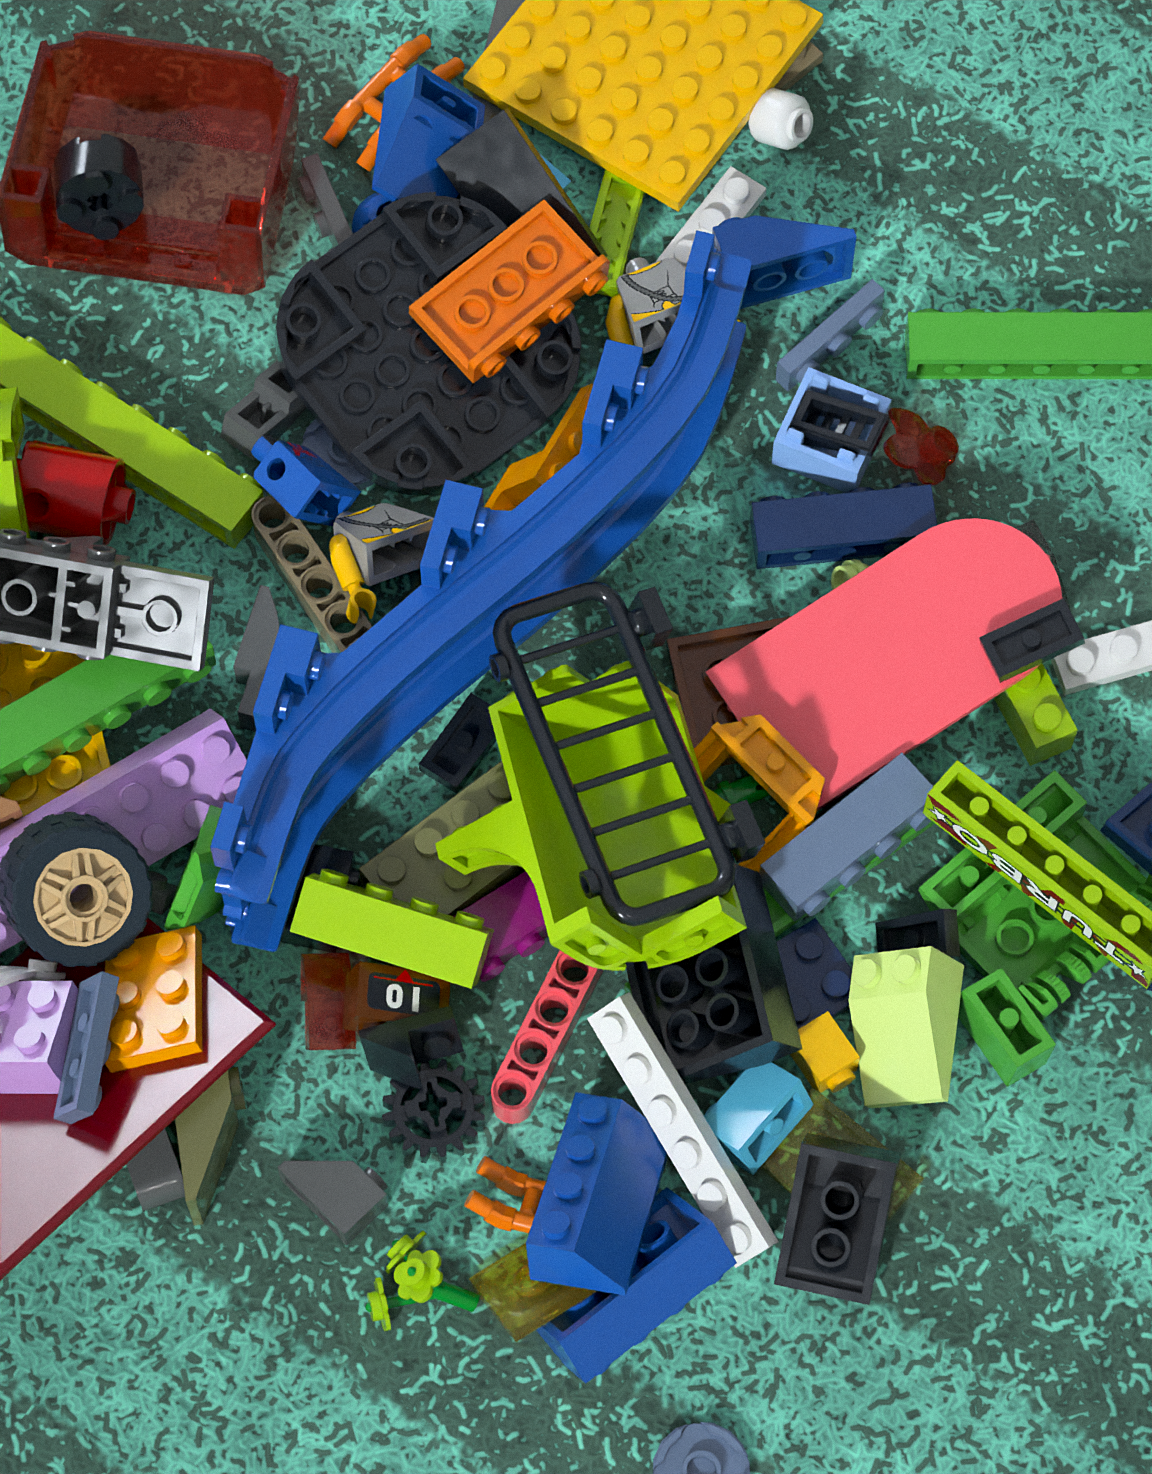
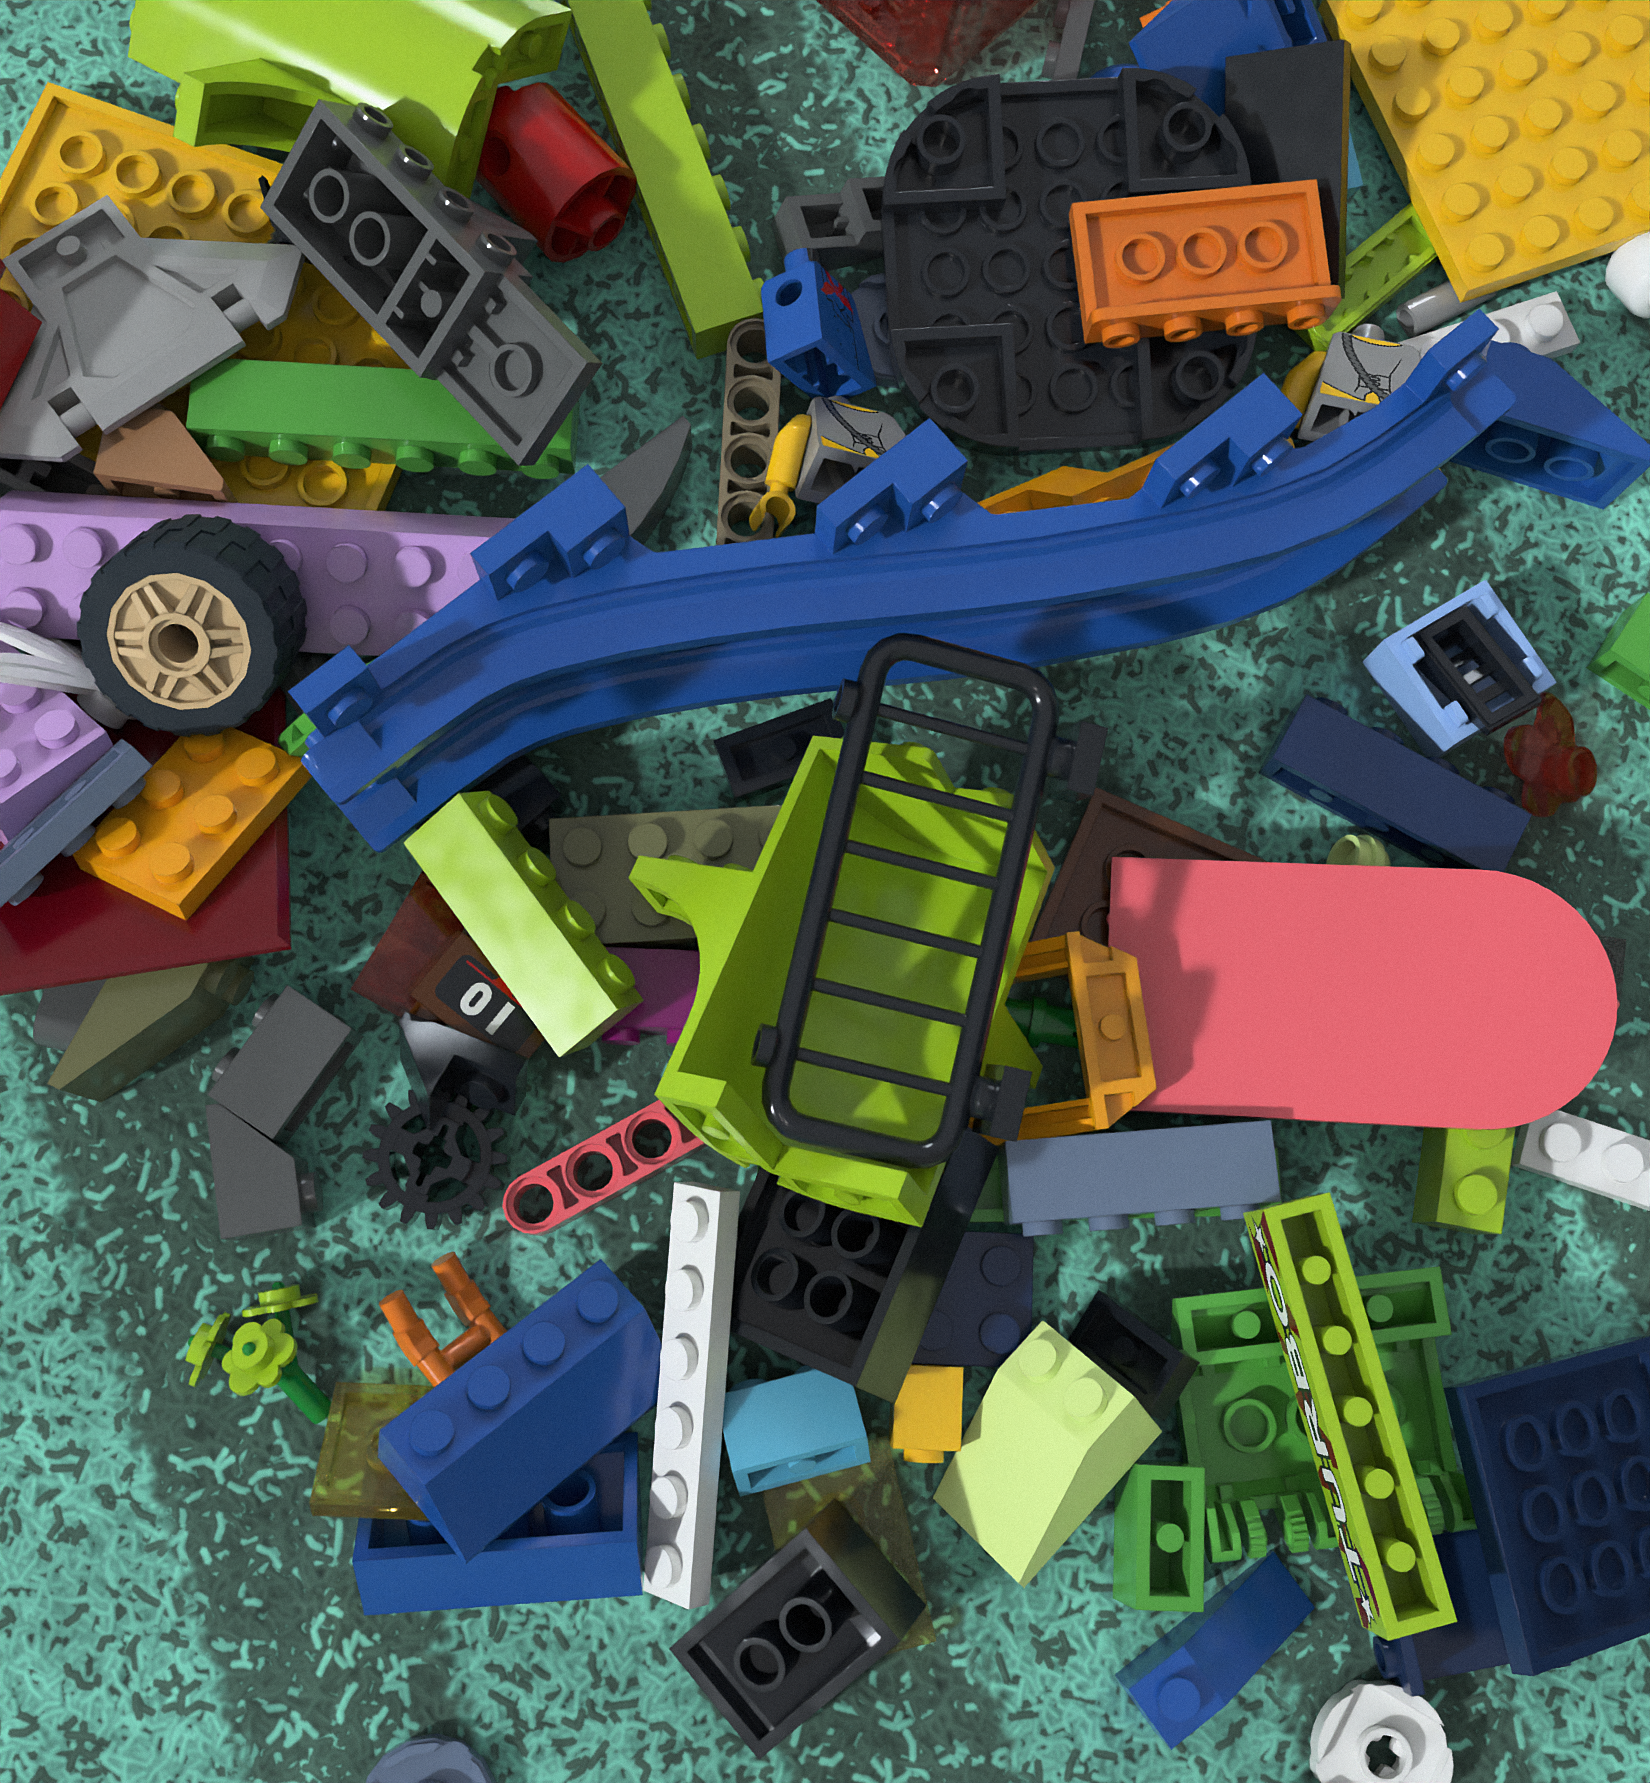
camera: 25 degrees right, 10 degrees up
(302, 1115) = (283, 1064): none -> dark grey brick
(663, 225) = (1434, 309): none -> light grey axle
(832, 335) = (1538, 560): sand blue plate -> none
(1031, 640) = (1527, 1098): black plate -> none
(1083, 1073) = (1215, 1651): none -> blue slope

